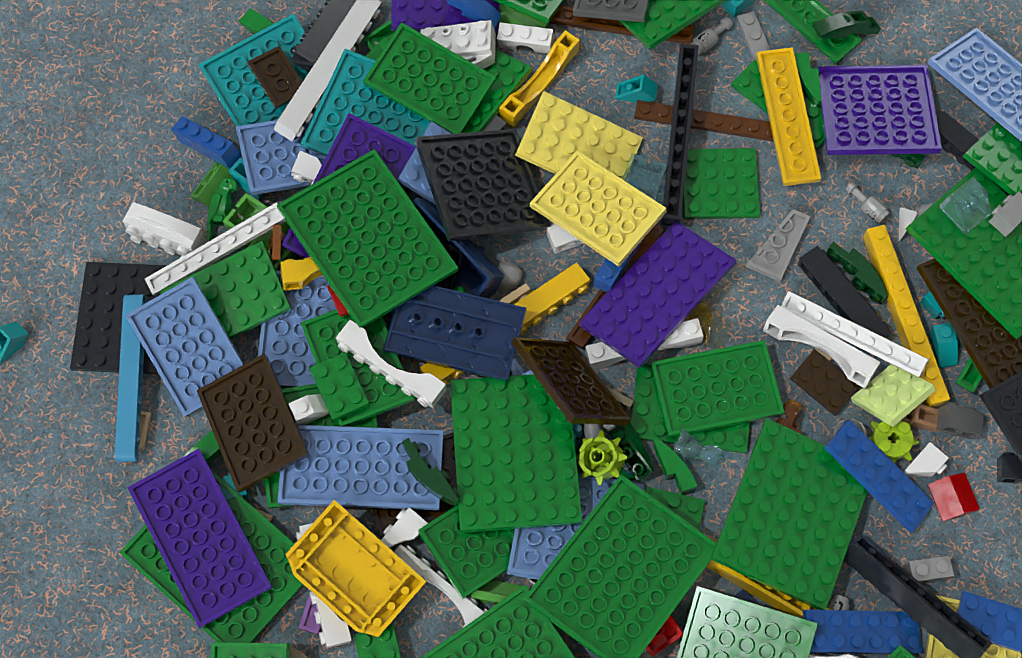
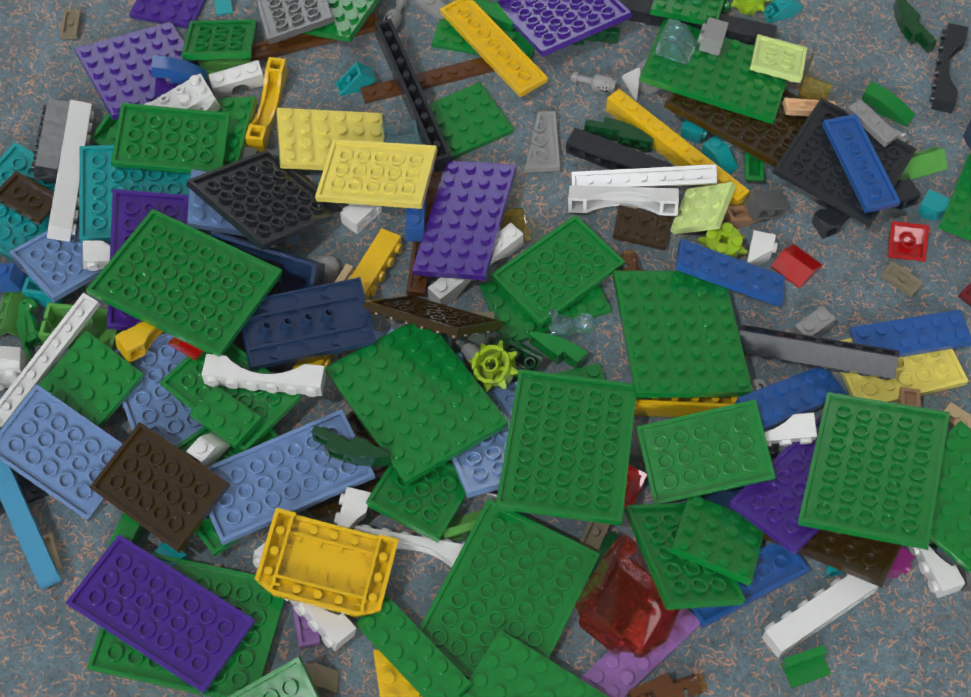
camera: 30 degrees left, 10 degrees down
(275, 242) = (99, 328): dark orange wing -> none

